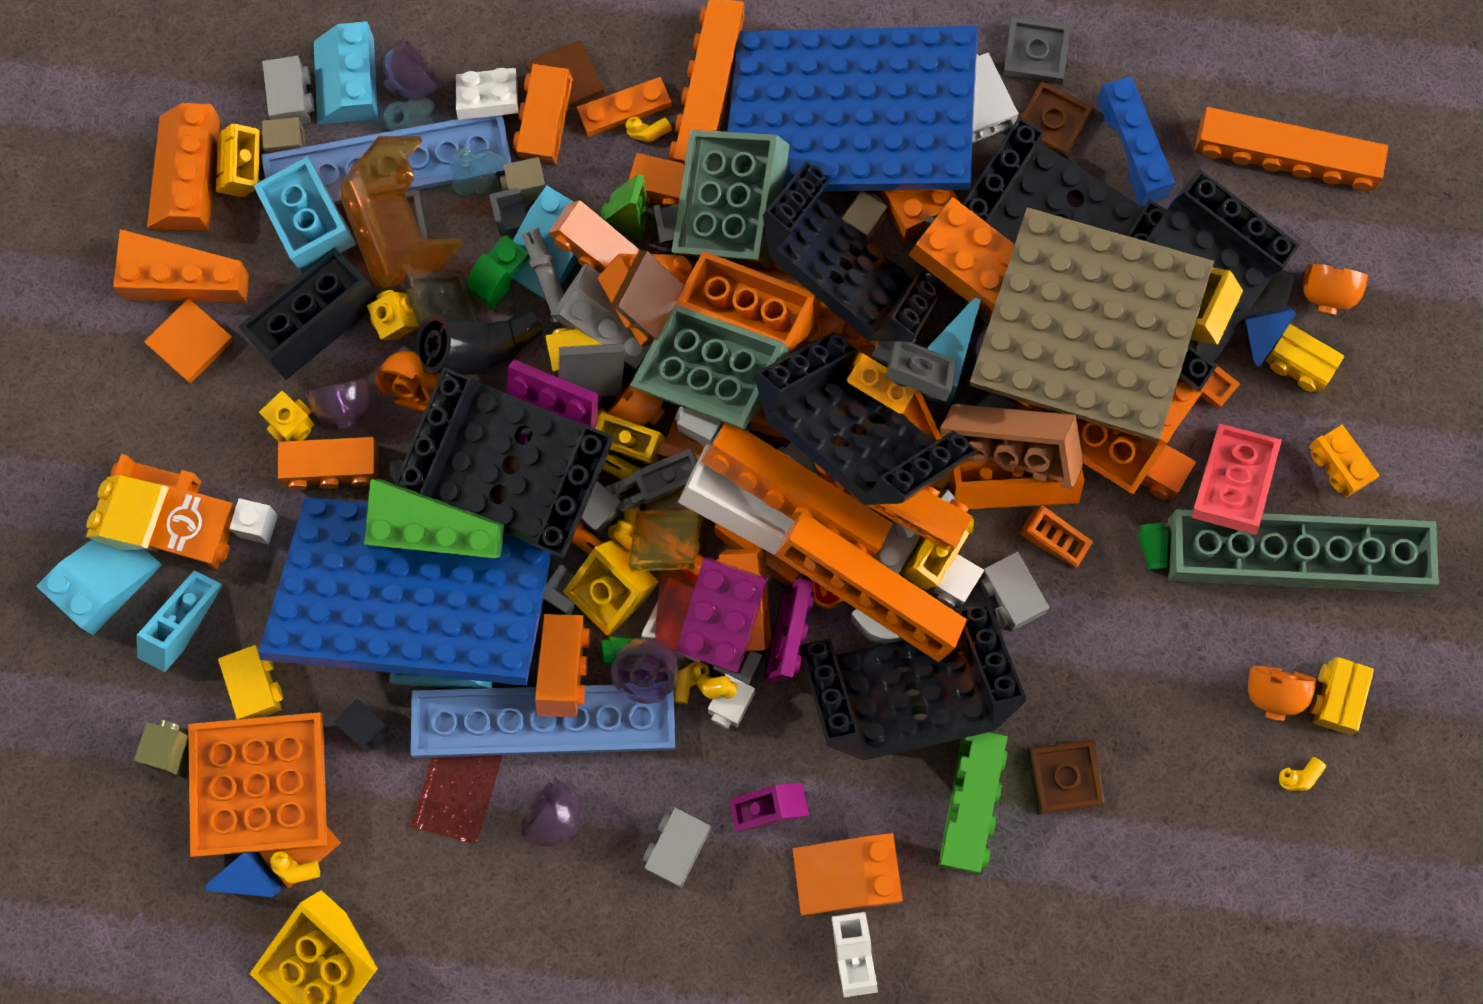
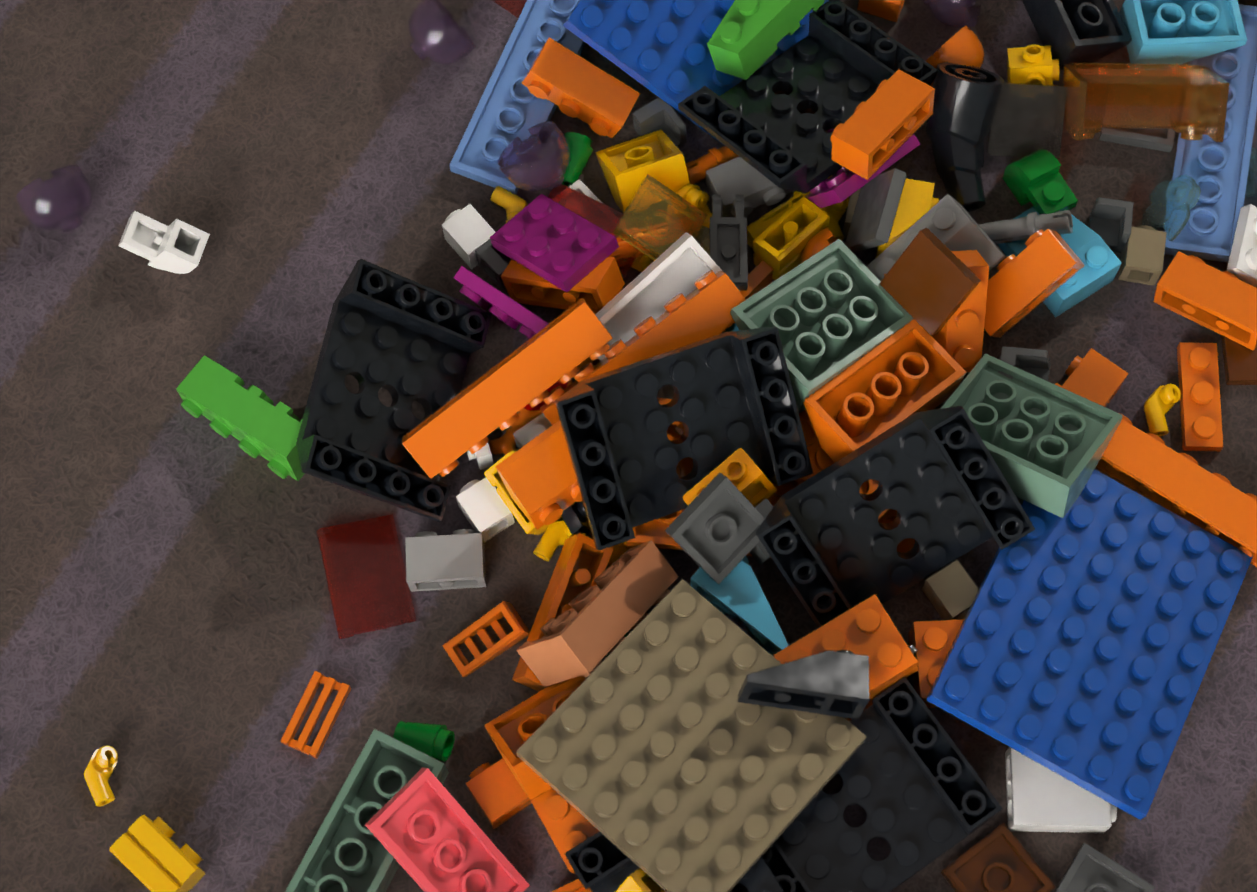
camera: 115 degrees right, 5 degrees down
(517, 386) = (882, 124): none -> orange brick
(628, 208) = (1059, 335): bright green slope -> none
(677, 847) = (352, 131): light grey brick -> none
(716, 687) = (486, 215): yellow arm -> none
(769, 806) = (346, 231): magenta slope -> none
(847, 874) = (243, 278): orange slope -> none
(1009, 246) = (820, 684): none -> black slope
(1054, 651) = (365, 576): none -> clear red piece
(1066, 777) = (230, 530): reddish brown tile -> none
(1202, 635) = (298, 716): none -> orange tile
(1280, 691) = (198, 790): orange cylinder -> none

